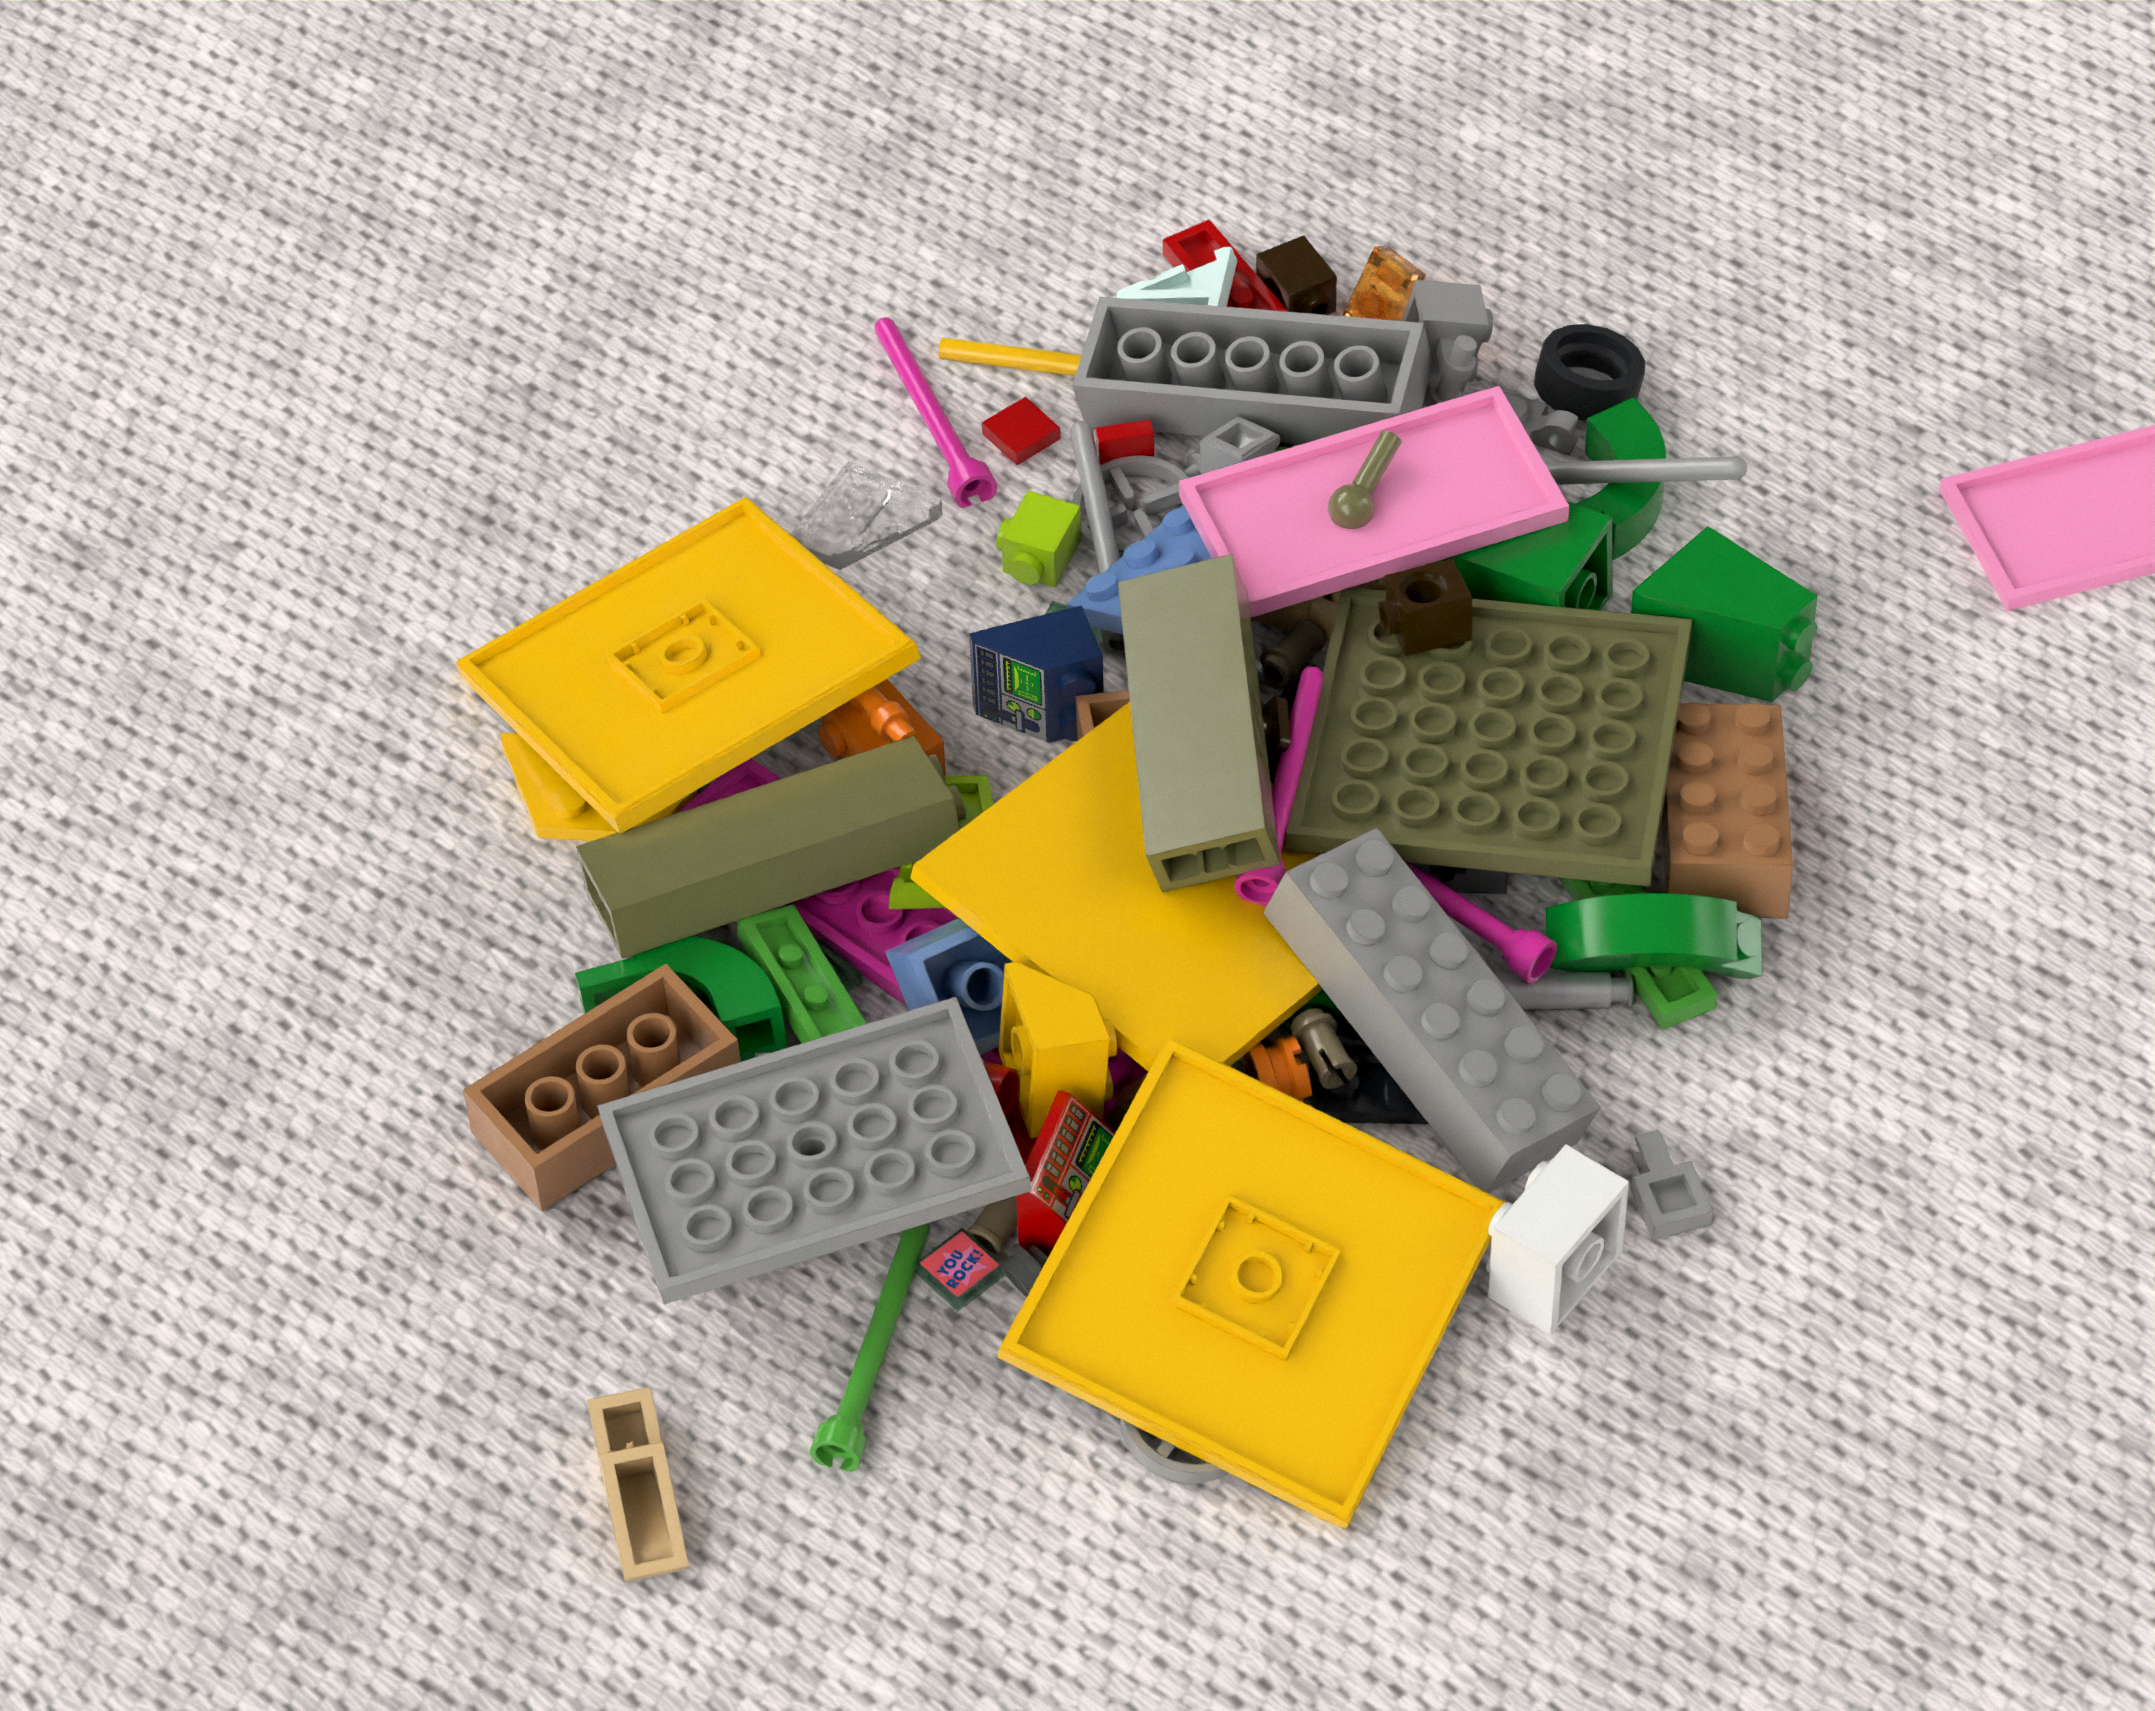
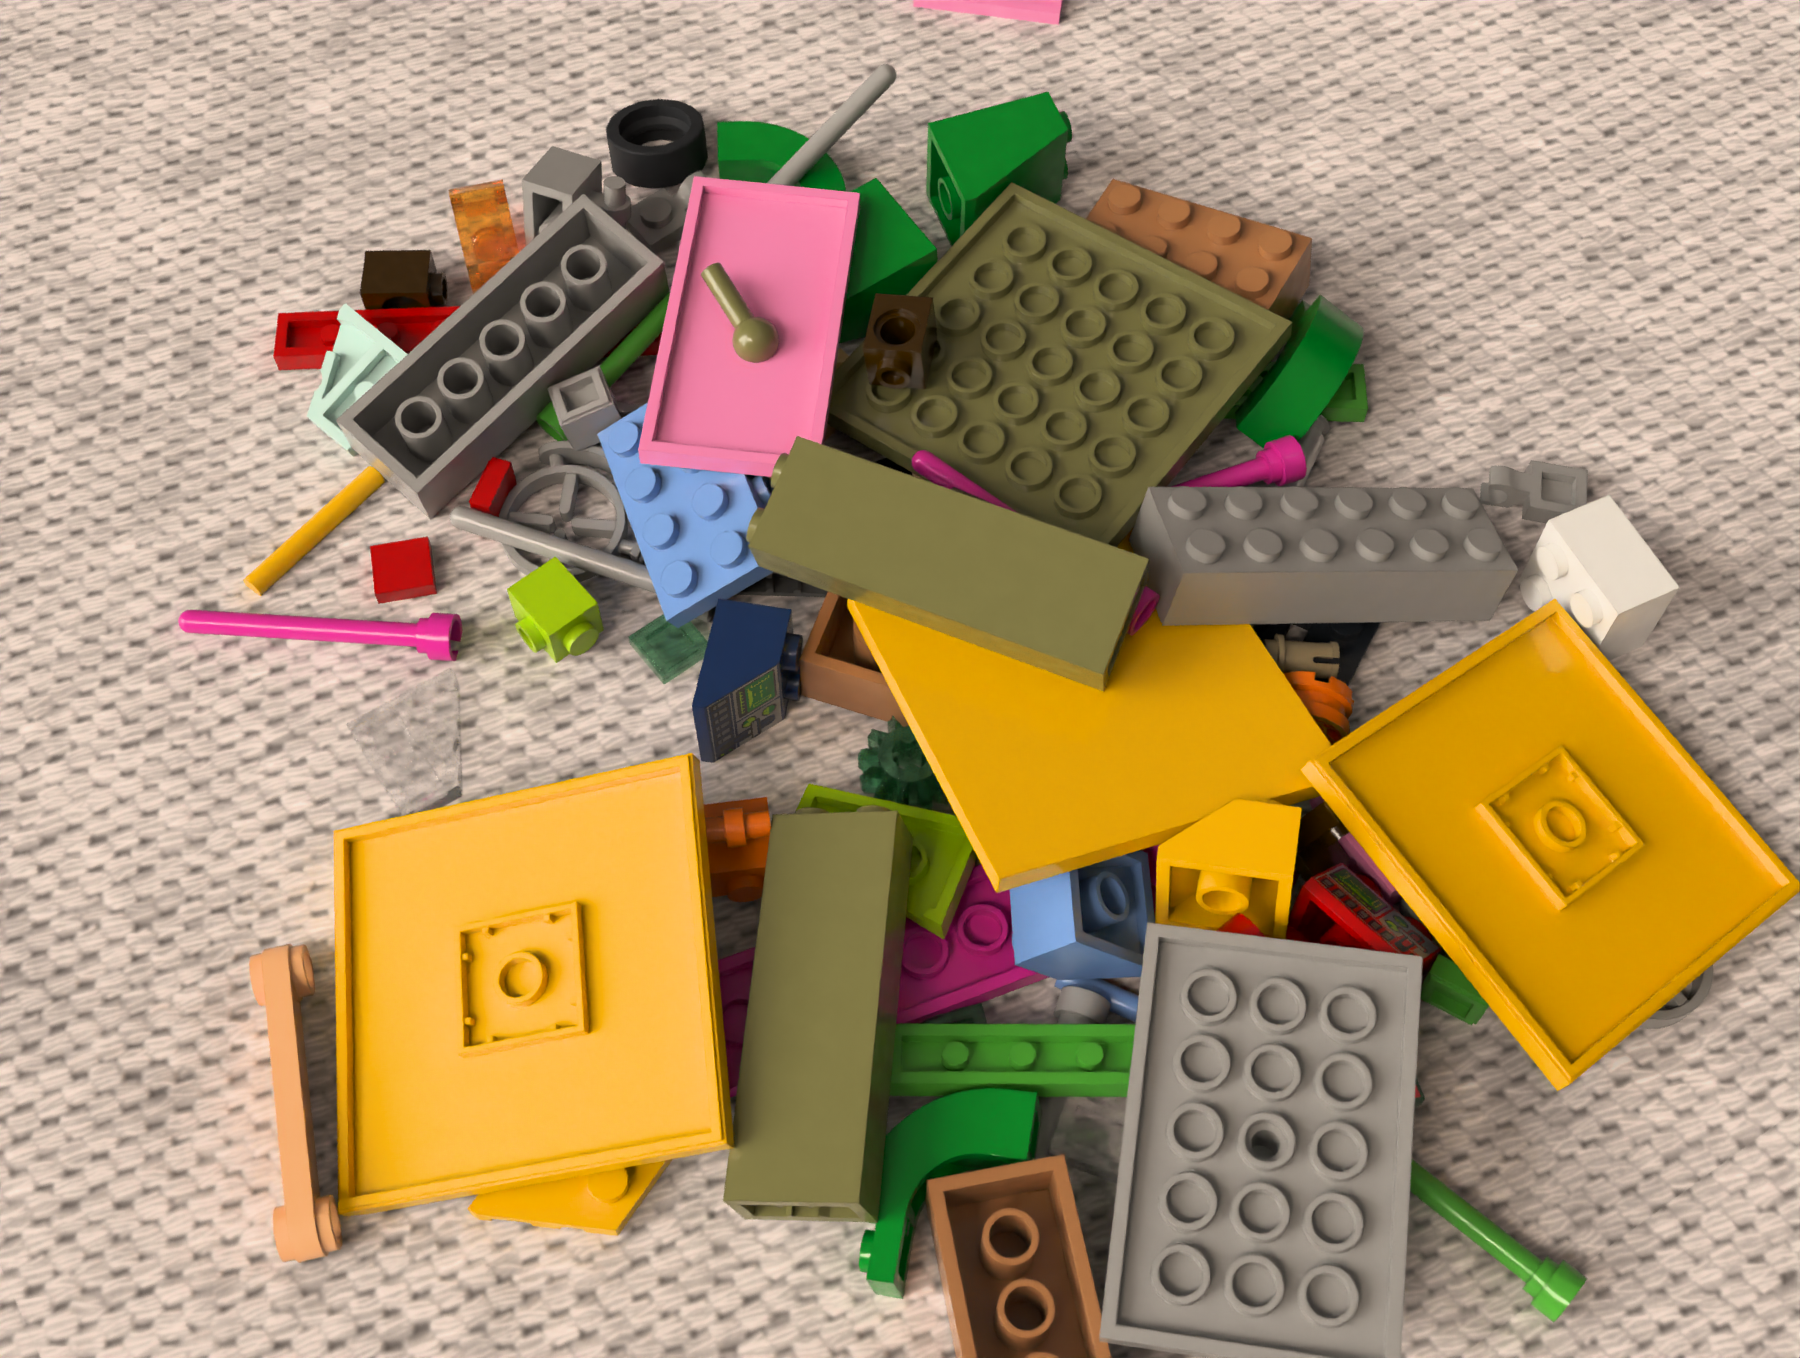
camera: 65 degrees left, 10 degrees up
(441, 641) = (306, 1223): none -> light nougat piece
(1023, 1267) = (1433, 1017): dark grey plate -> none

